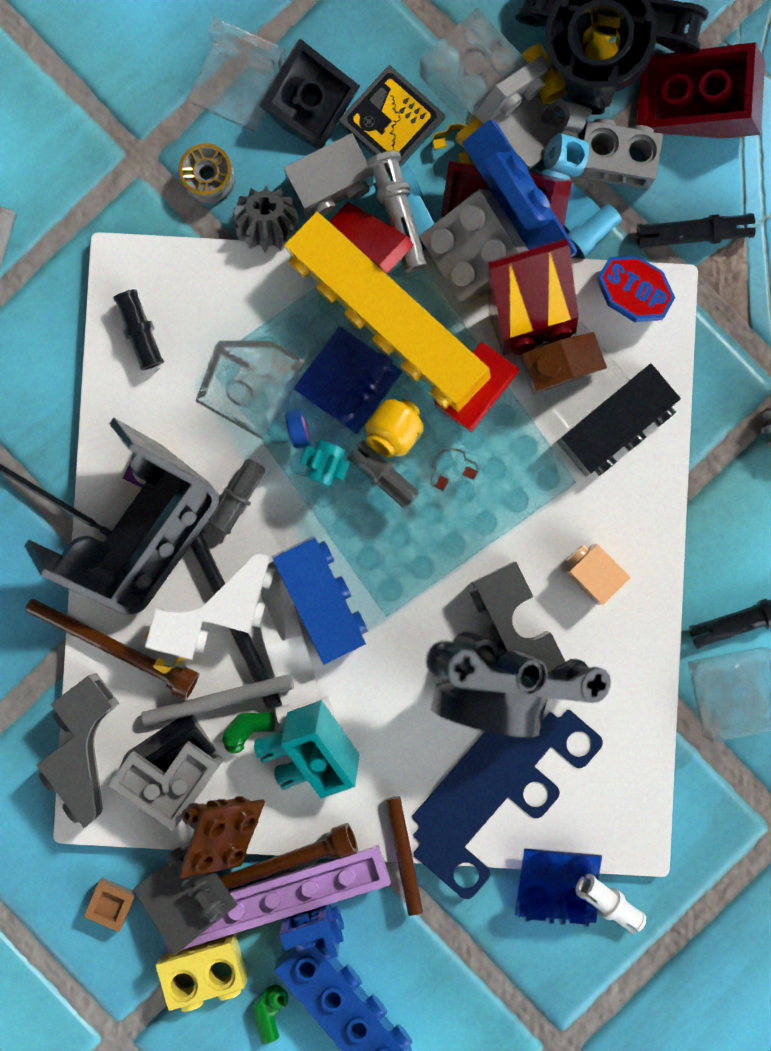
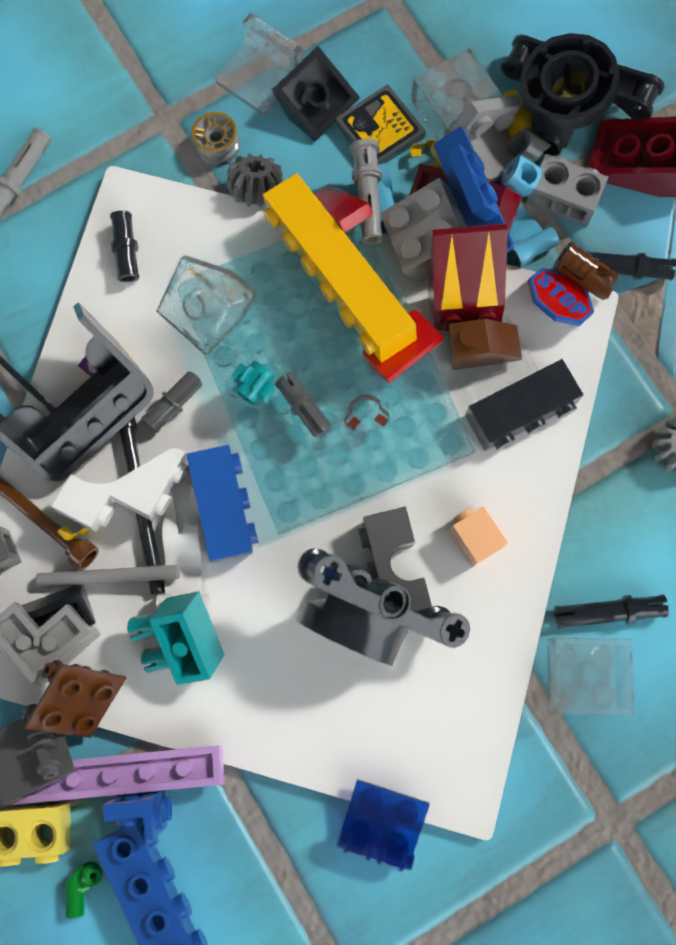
camera: 15 degrees right, 10 degrees down
(243, 726) = (124, 606): green arm -> none
(297, 428) = (237, 349): blue tile -> none
(329, 176) = (318, 157): light grey brick -> none
(338, 842) = (185, 733): reddish brown piece -> none
(348, 379) = (292, 319): clear blue hinge -> none
(394, 428) = (321, 366): yellow head -> none
(404, 855) = (243, 762): reddish brown bar -> none
(478, 786) = (331, 708): dark blue piece -> none
(610, 904) = (429, 854): white pin -> none
(657, 251) = (586, 271): none -> reddish brown hinge

